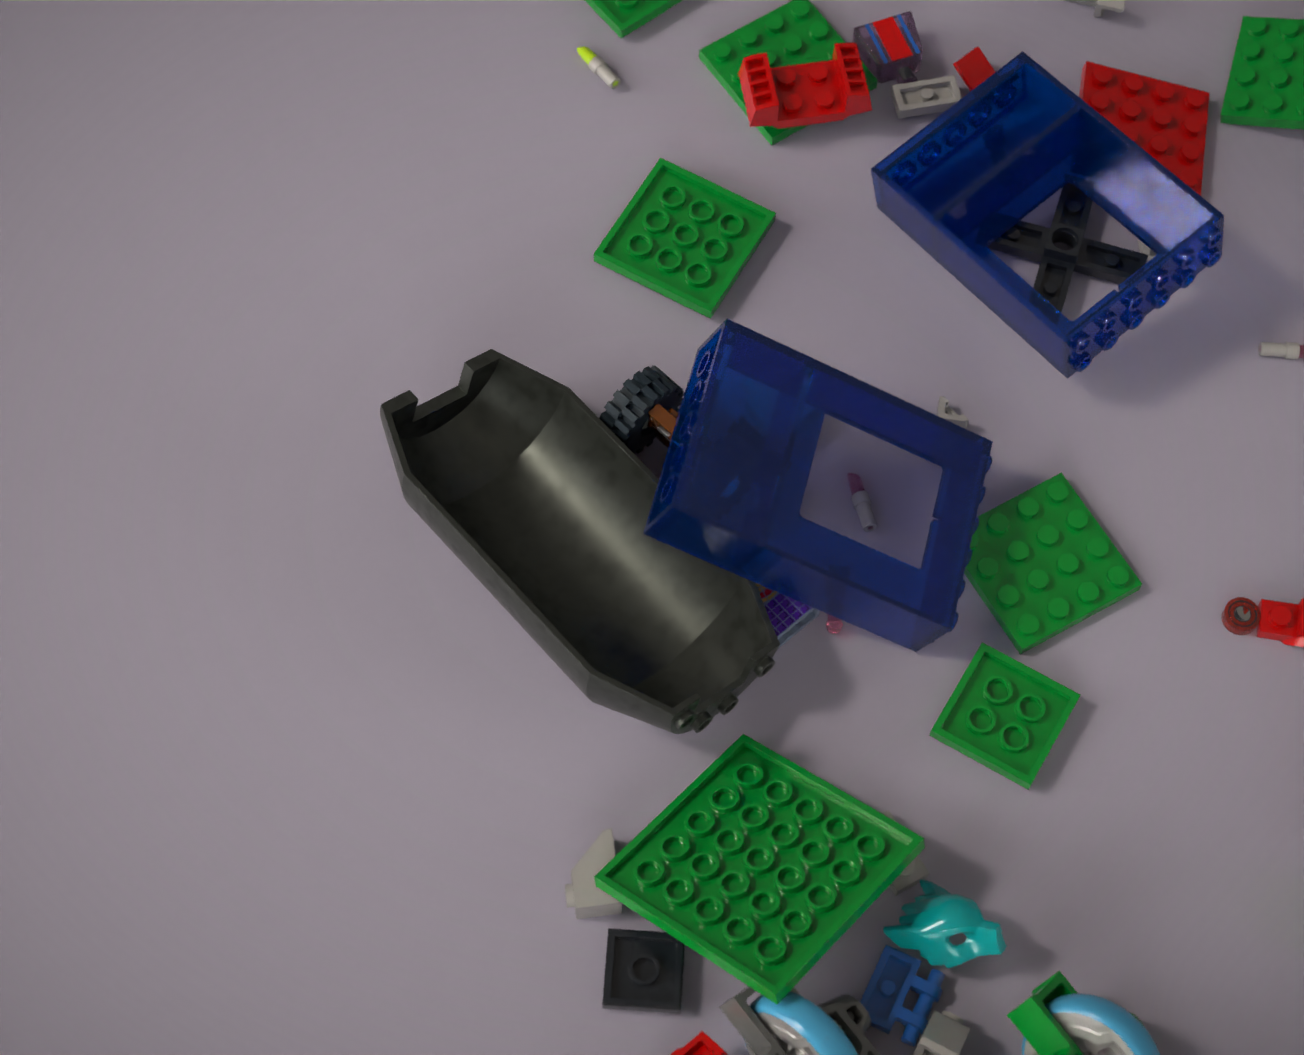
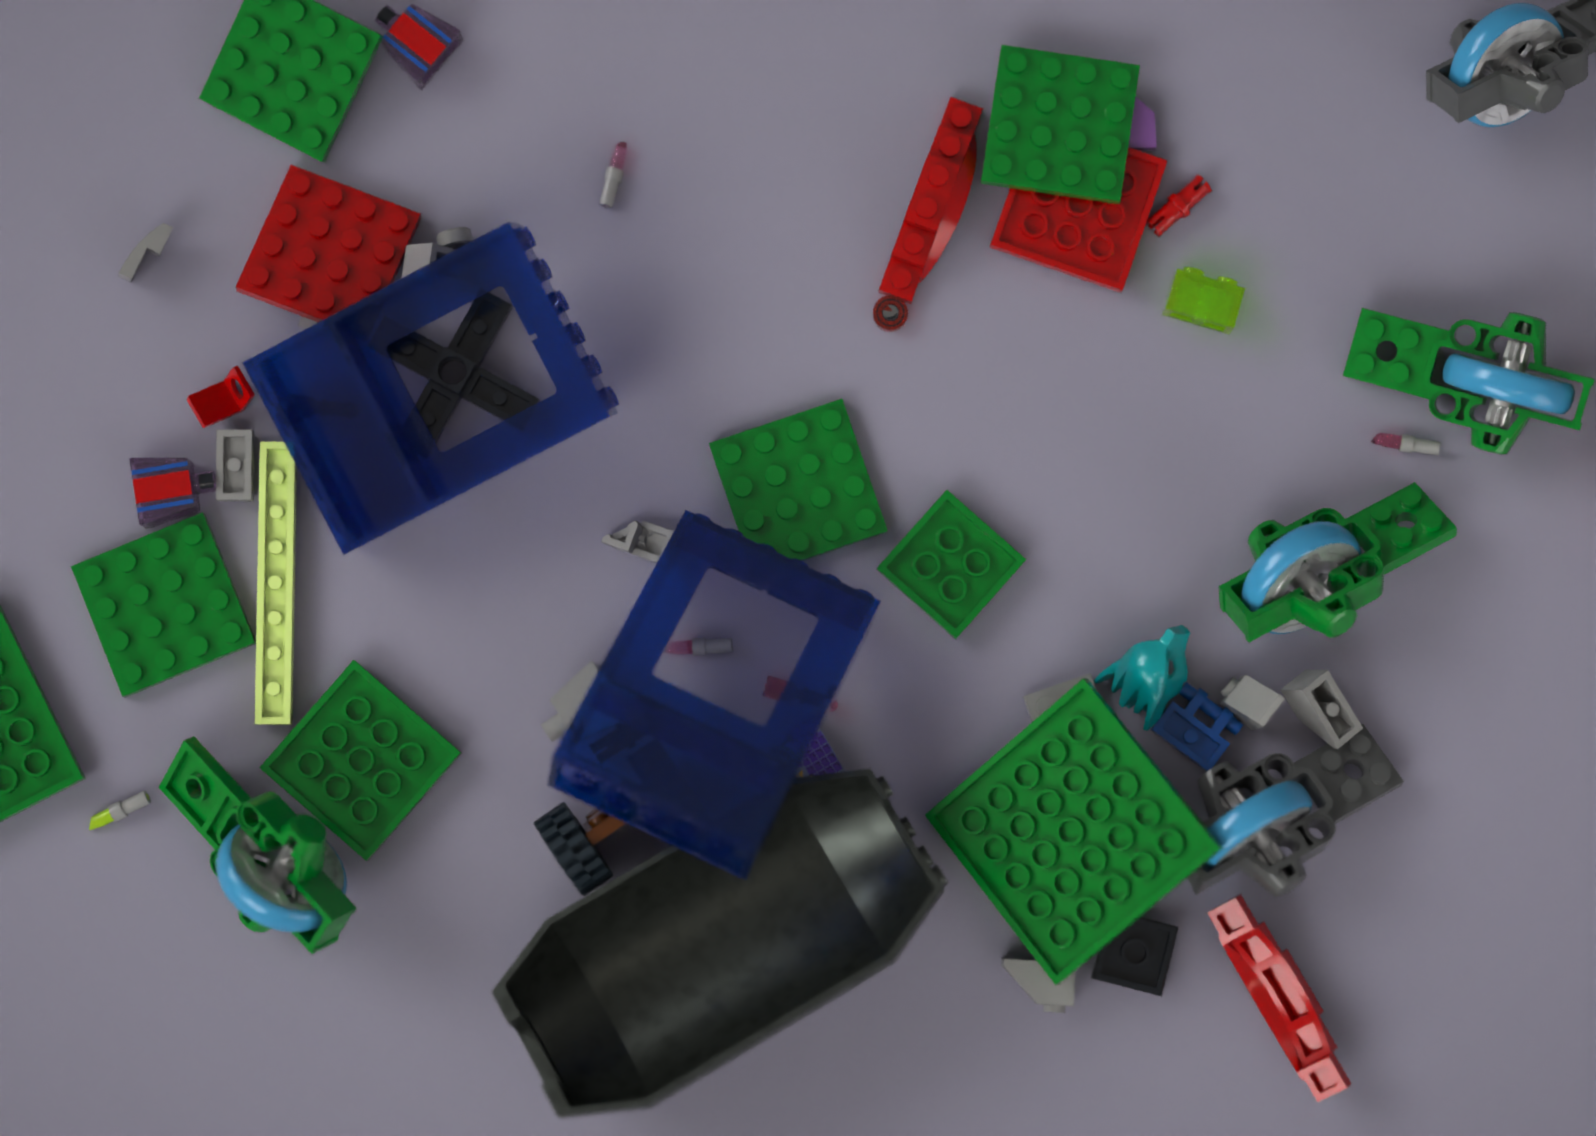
camera: 80 degrees left, 20 degrees up
(574, 166) = (262, 851): none -> green piece
(804, 91) = (211, 596): red plate -> none
(810, 147) = (275, 585): none -> yellowish green plate

